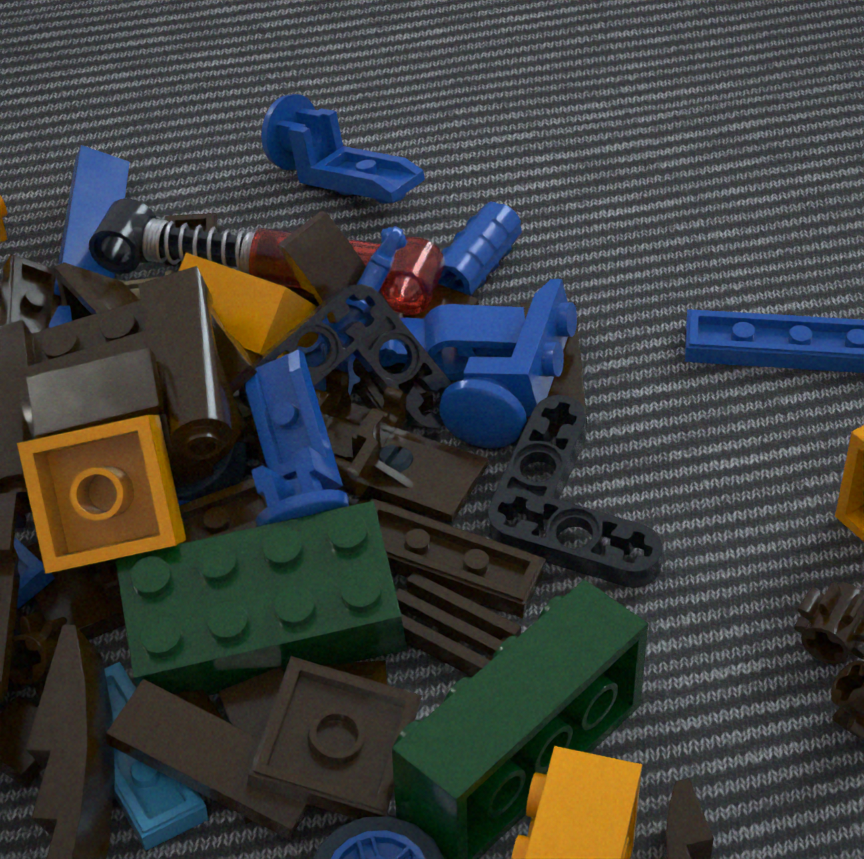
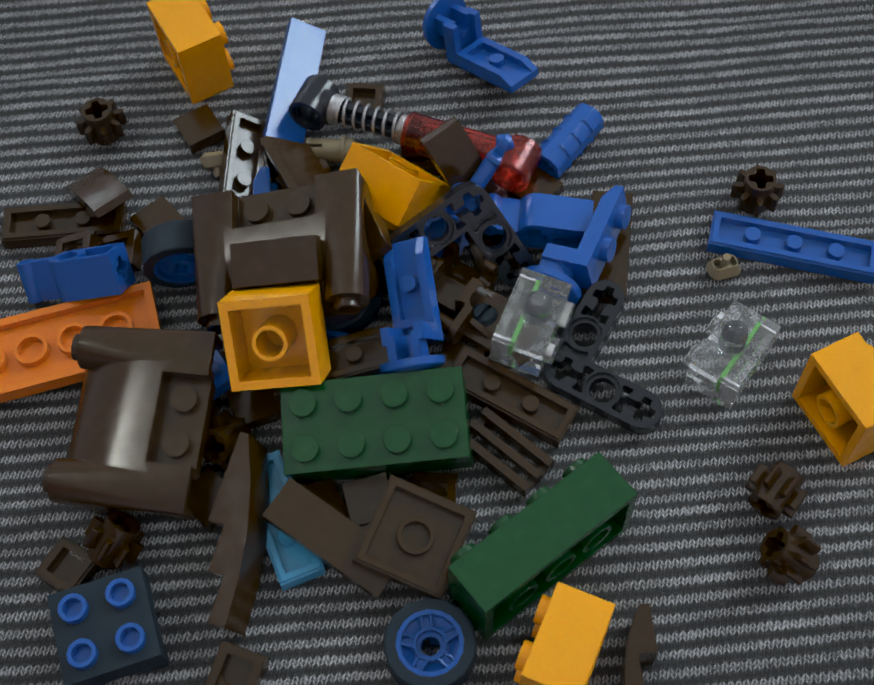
camera: 10 degrees right, 15 degrees up
(462, 454) = (530, 321): none -> clear piece
(712, 374) = (723, 267): none -> dark tan rock
(739, 279) = (757, 190): none -> dark brown gear
(741, 470) = (730, 354): none -> clear piece

